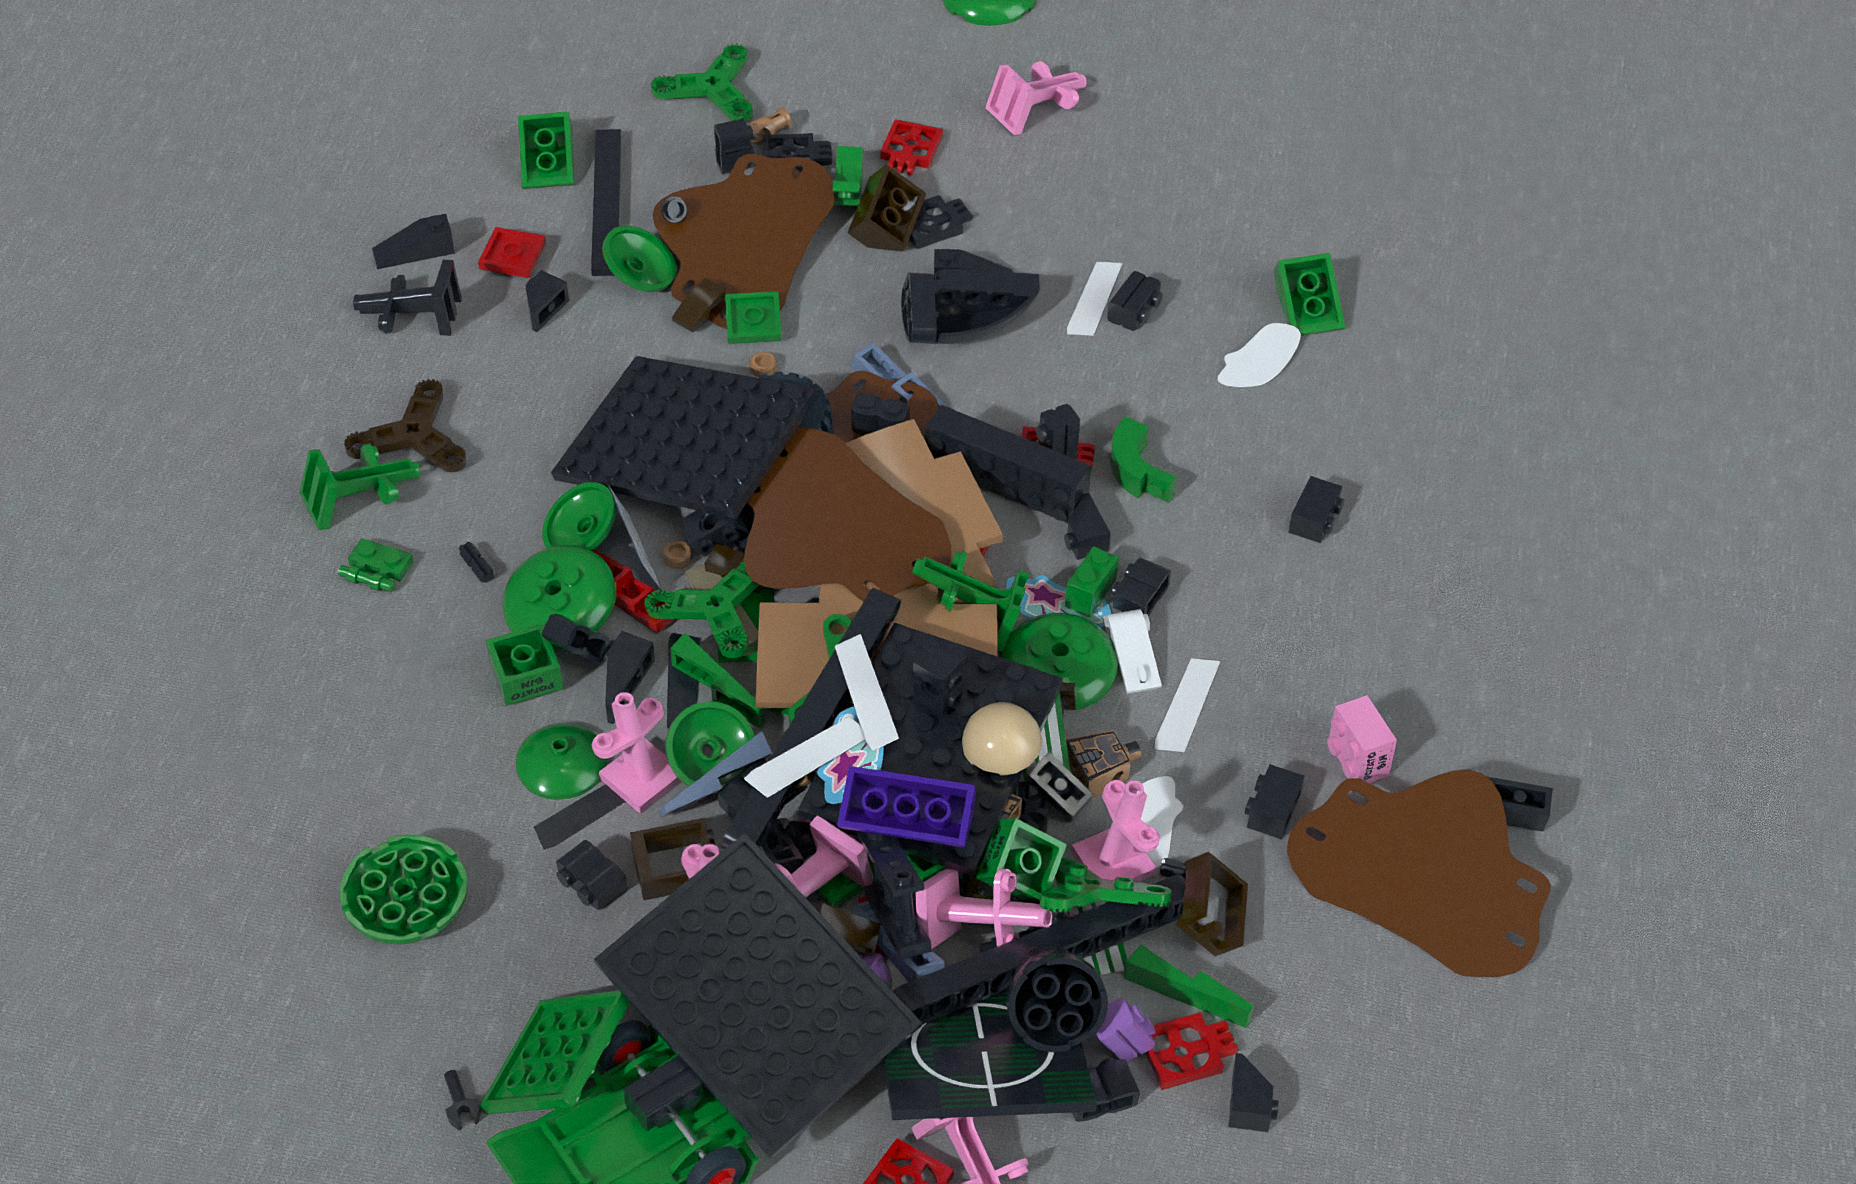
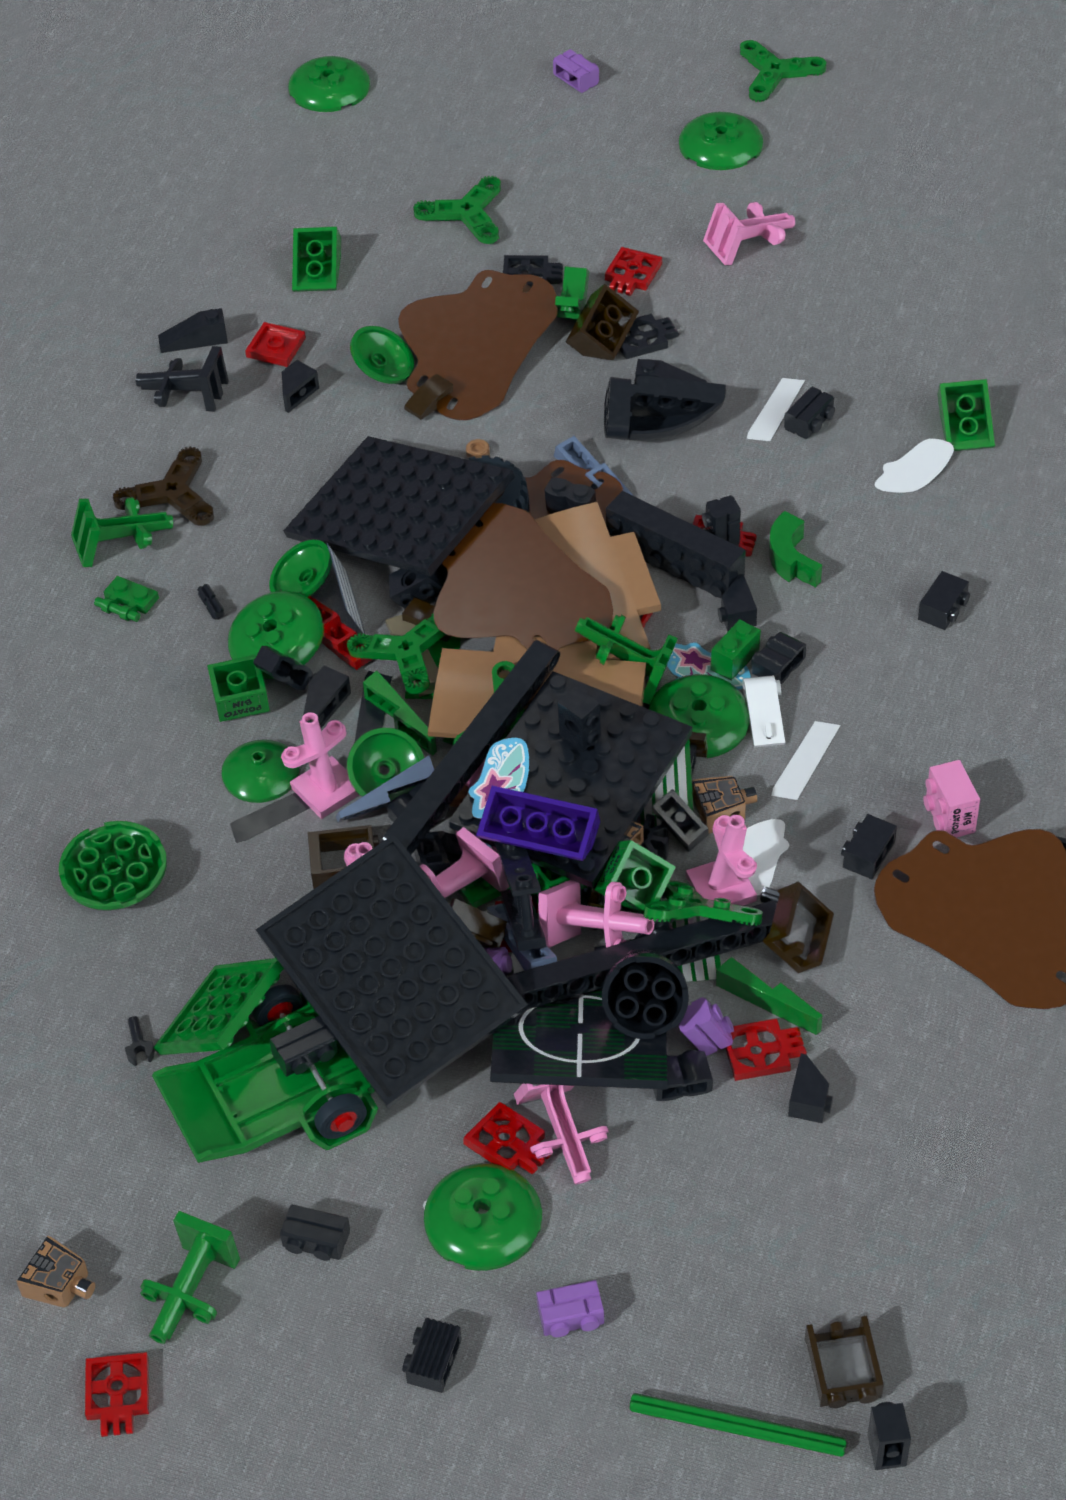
camera: 10 degrees right, 0 degrees up
(591, 875) = (271, 866): black brick -> none
(606, 195) = (363, 296): black tile -> none
(673, 209) = (416, 313): plate -> none
(677, 554) = (381, 605): medium nougat tile -> none
(731, 143) = (475, 258): black brick -> none
(753, 317) = (473, 409): green plate -> none
(770, 124) = (511, 246): medium nougat piece -> none
(805, 757) = (461, 777): white sticker -> none
(866, 693) = (518, 728): white sticker -> none
(1002, 738) = (630, 773): tan cylinder -> none

